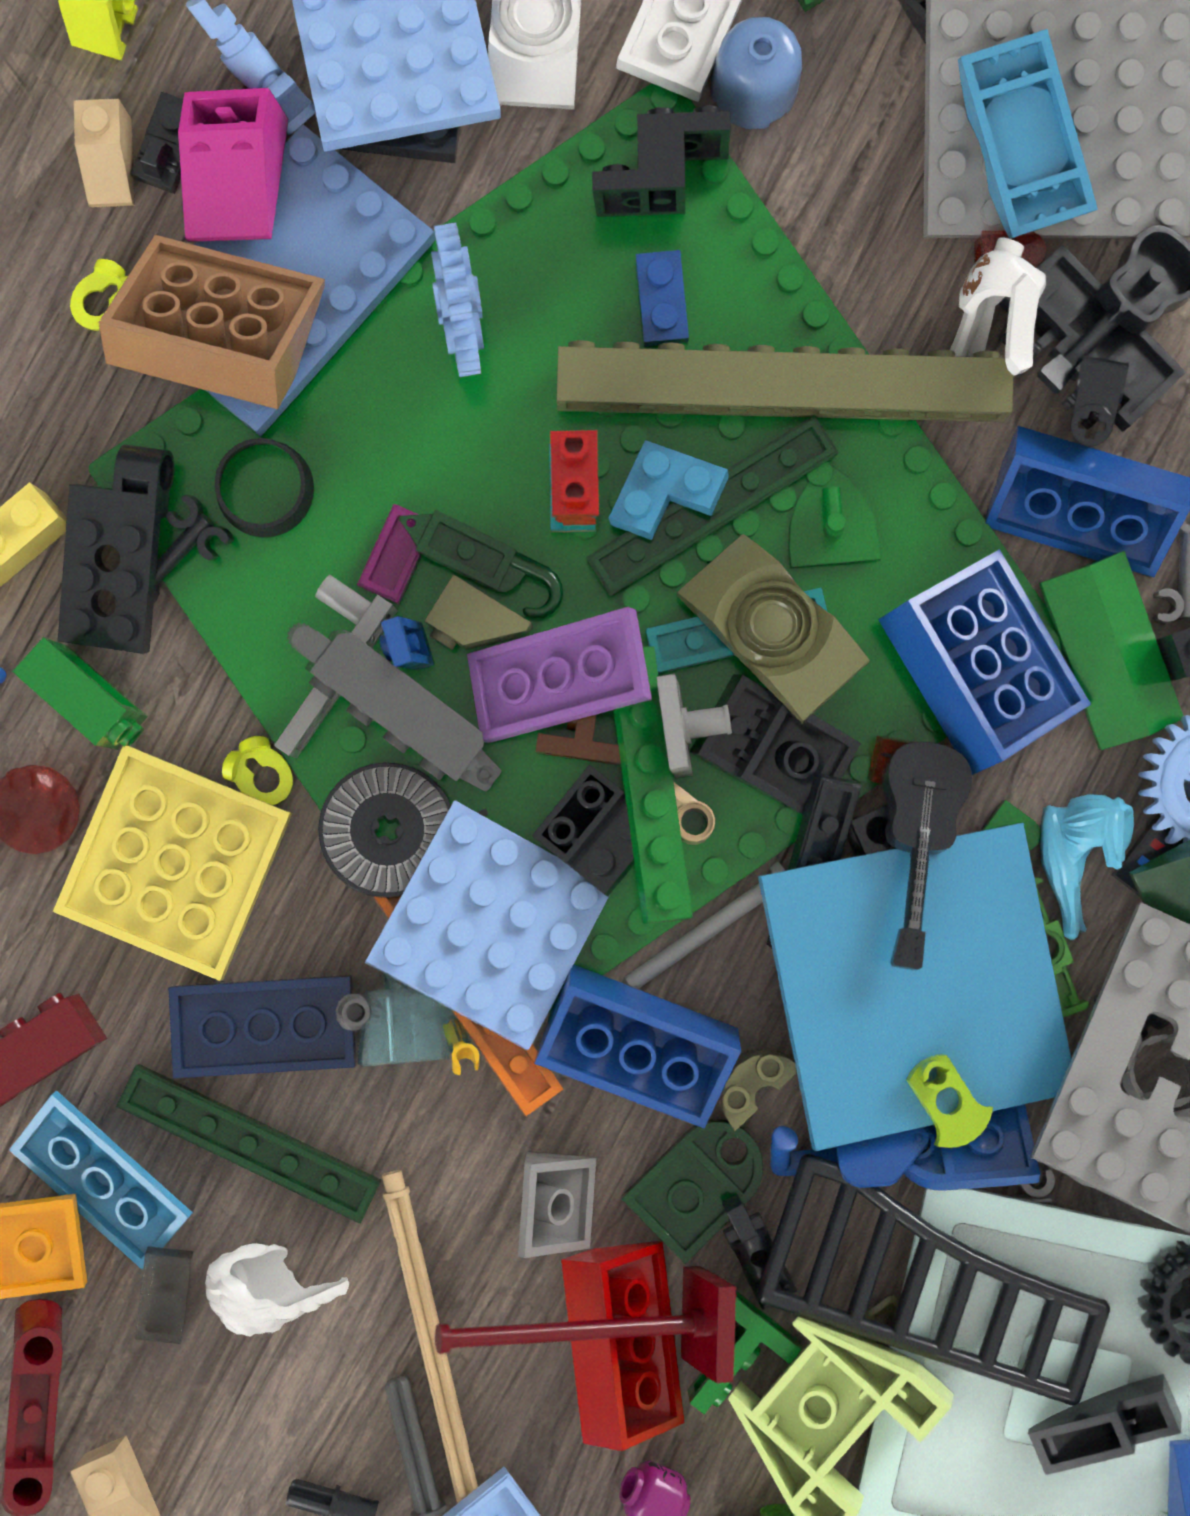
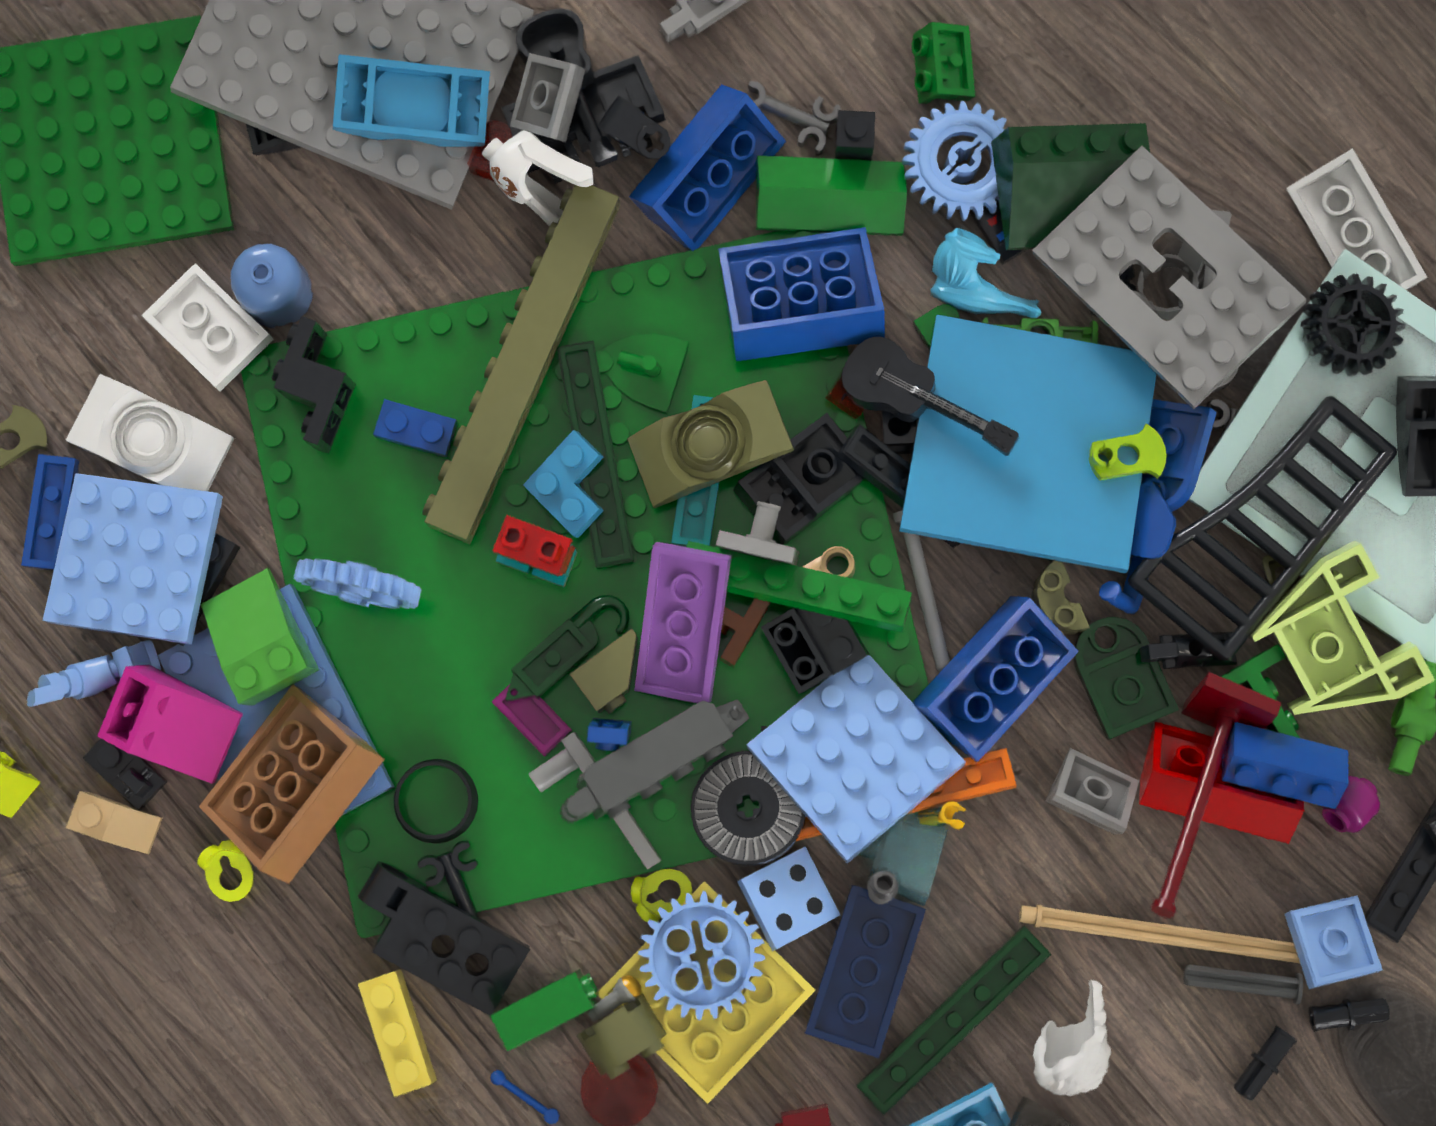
camera: 65 degrees left, 5 degrees down
(86, 792) = (622, 1036): none -> olive cylinder
(137, 774) = (625, 991): none -> light grey piece
(184, 807) = (665, 962): none -> light blue gear
(307, 912) = (788, 898): none -> light blue tile
(356, 219) = (257, 639): none -> bright green slope
(666, 1411) = (1285, 765): none -> blue brick
(1095, 287) = (547, 97): none -> light grey slope

